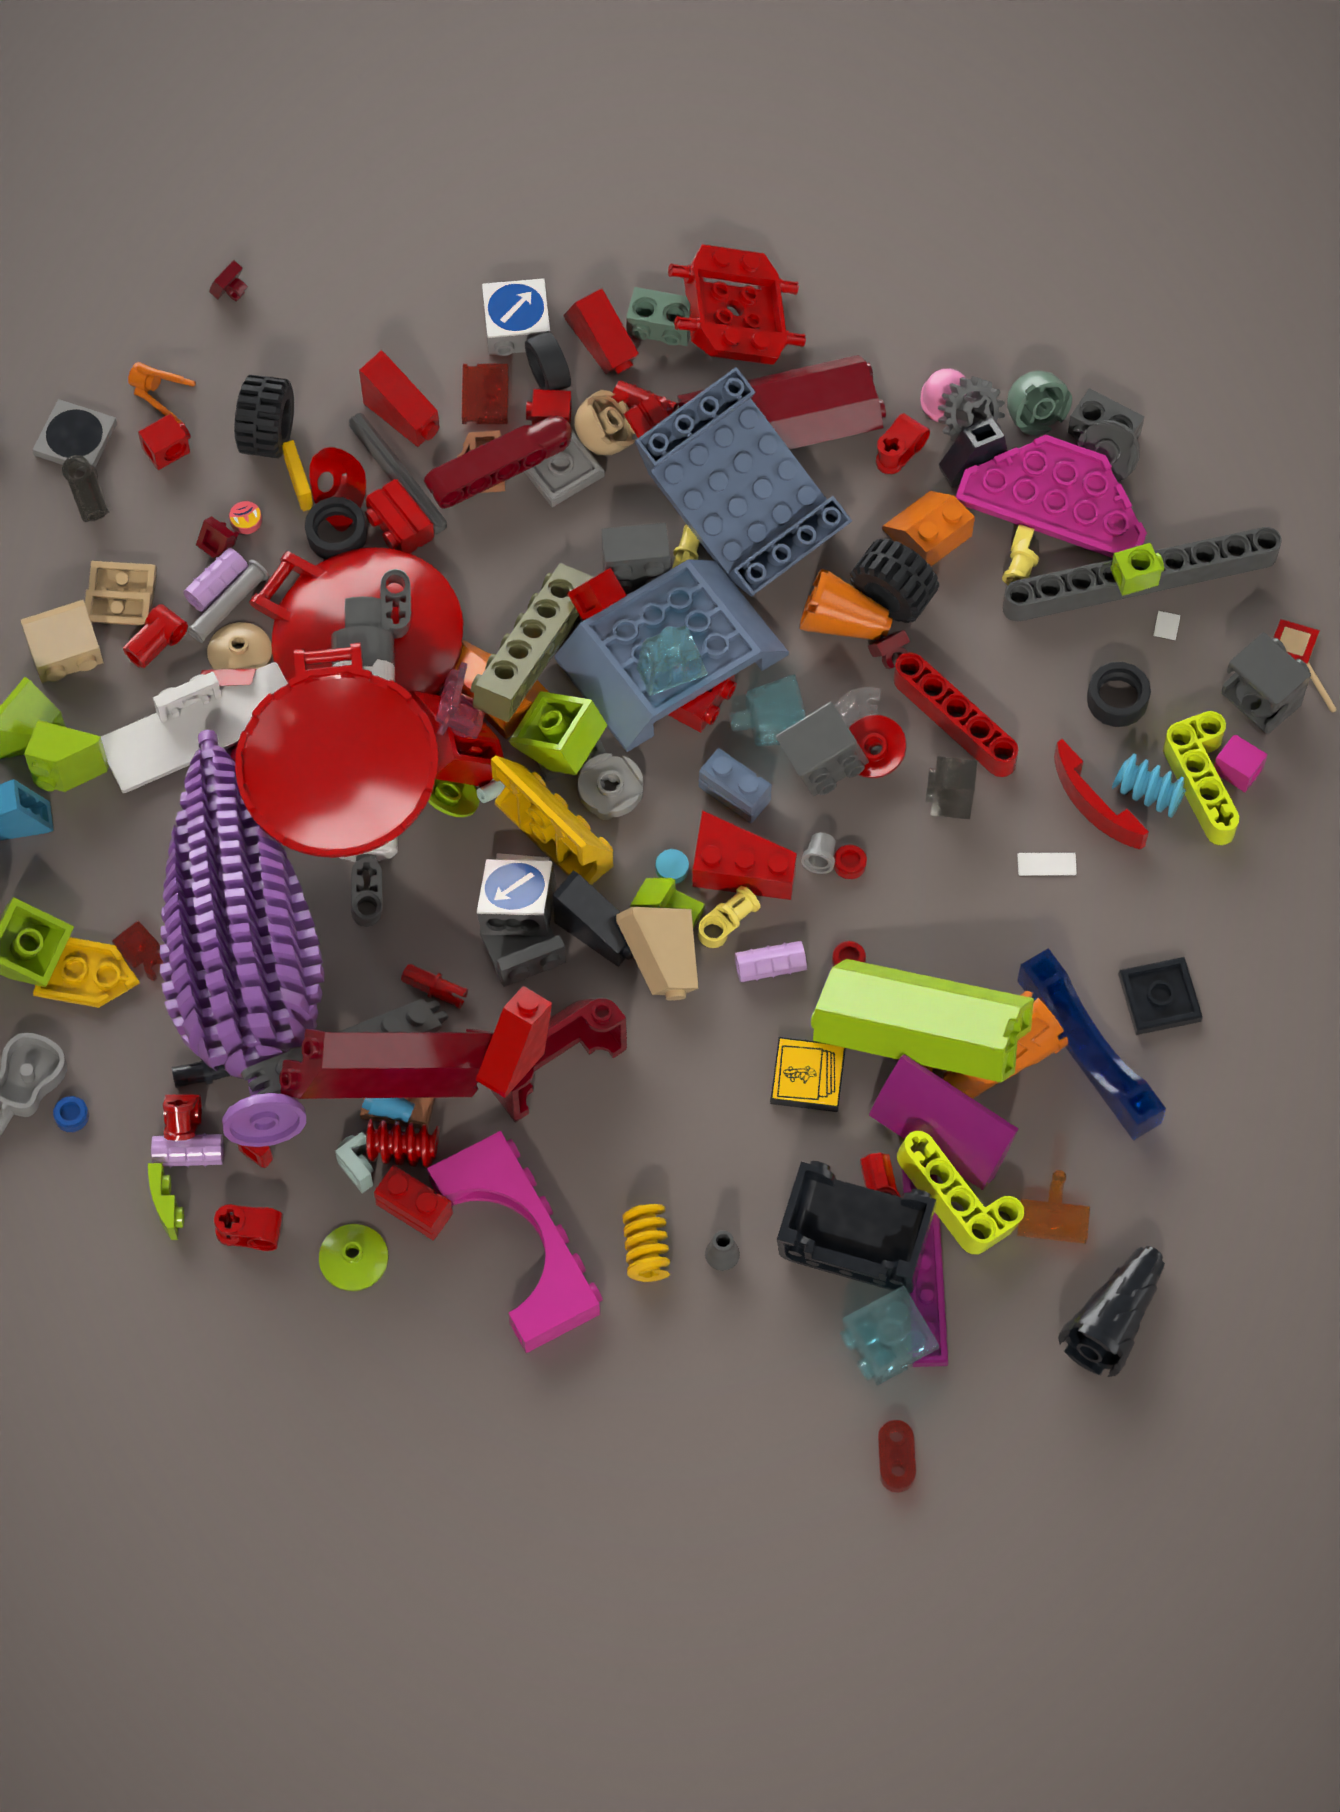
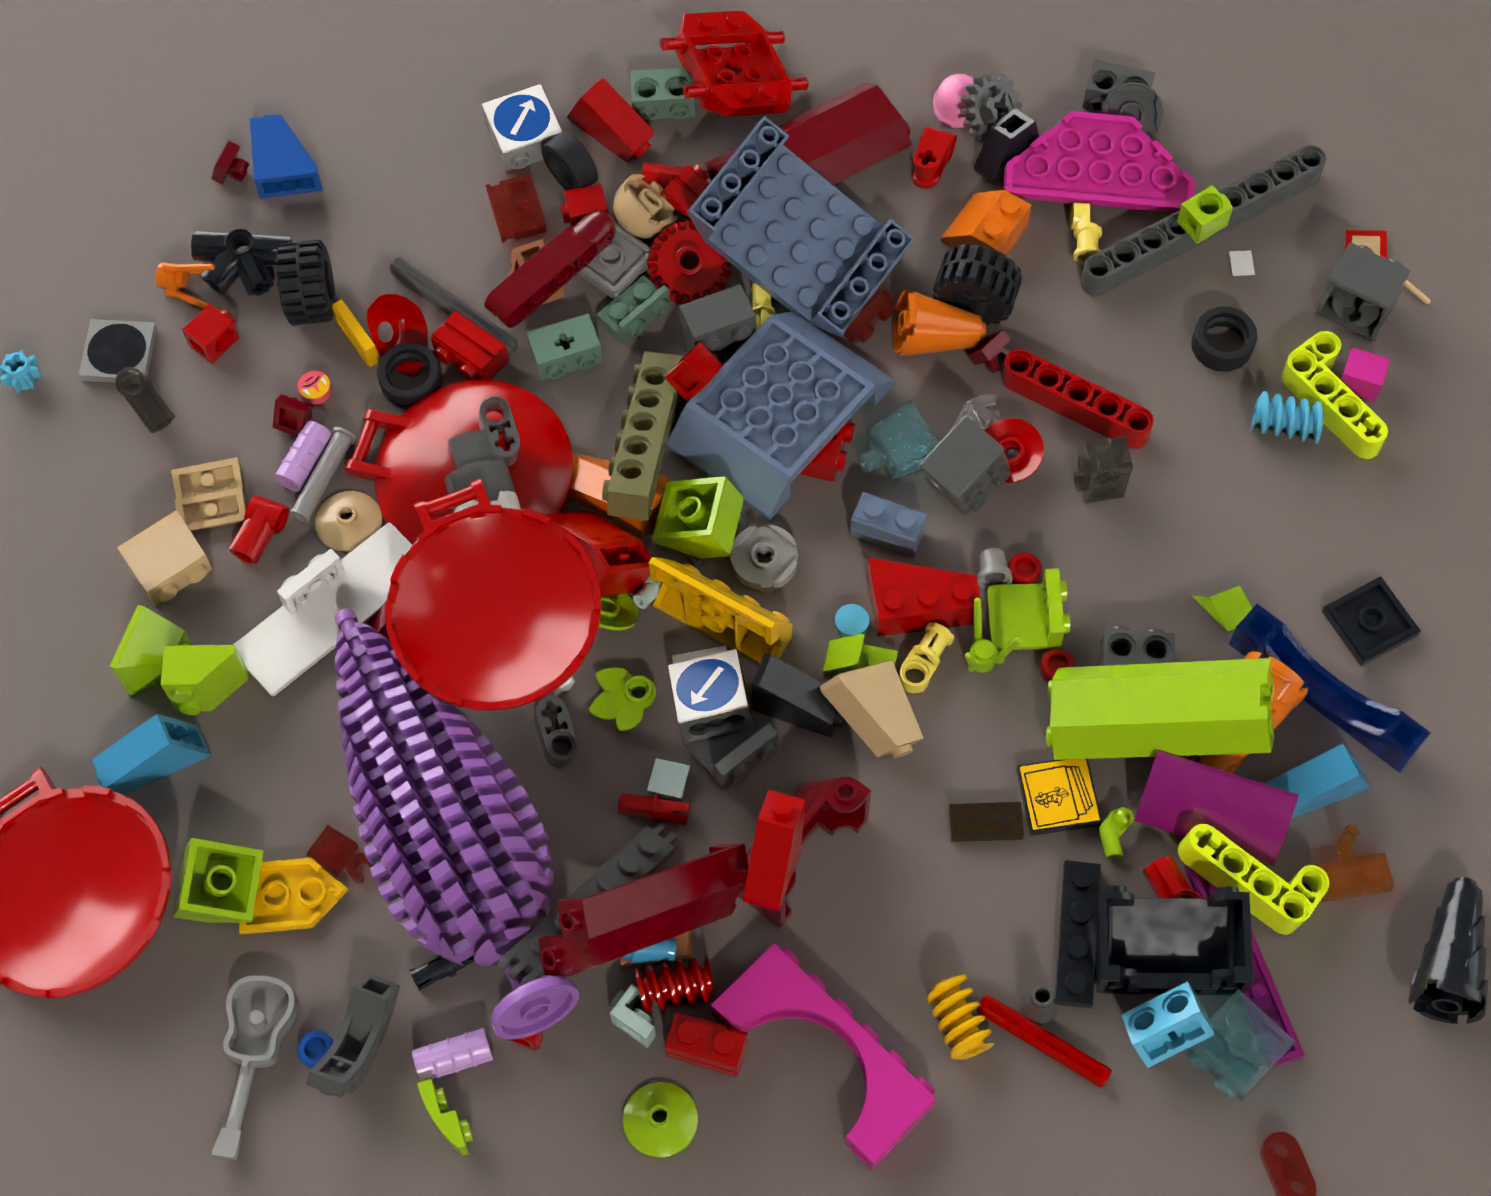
camera: 15 degrees left, 0 degrees up
(110, 1112) = (358, 1039): none -> dark grey arch
(181, 1116) = (436, 1021): red piece -> none
(202, 380) = (231, 264): none -> black piece
(232, 677) = (350, 548): sticker -> none
(252, 1226) = (546, 1120): red piece -> none
(276, 289) = (280, 160): none -> blue slope
(397, 400) = (433, 234): red slope -> none
(435, 877) = (618, 699): none -> lime plate
(456, 708) = (593, 521): clear pink bracket -> none
(456, 964) = (668, 780): none -> light aqua tile
(499, 530) = (564, 347): none -> sand green brick
(566, 520) = (634, 309): none -> sand green bracket
(607, 491) = (684, 284): none -> red gear
(669, 660) = (791, 416): clear light blue torso -> none
(717, 1284) = (1044, 1040): none -> red axle
(732, 1079) = (986, 821): none -> dark brown tile
(761, 1239) = (1077, 934): none -> black hinge
(770, 961) = (983, 691): lavender axle -> none
(776, 591) = (863, 325): none -> clear red plate
(783, 926) = (983, 652): none -> lime plant
(828, 1298) = (1167, 1024): none -> medium azure brick
(836, 902) = (1029, 612): none -> lime bracket
(847, 1117) = (1112, 829): none -> lime arm
(928, 958) = (1136, 646): none -> dark grey brick
(1026, 944) = (1226, 607): none -> lime sticker
(1038, 401) = (1049, 83): sand green cylinder -> none
(1046, 864) = (1213, 521): white sticker -> none
(1054, 1126) = (1323, 780): none -> dark azure slope
(1121, 827) = (1277, 467): red slope -> none

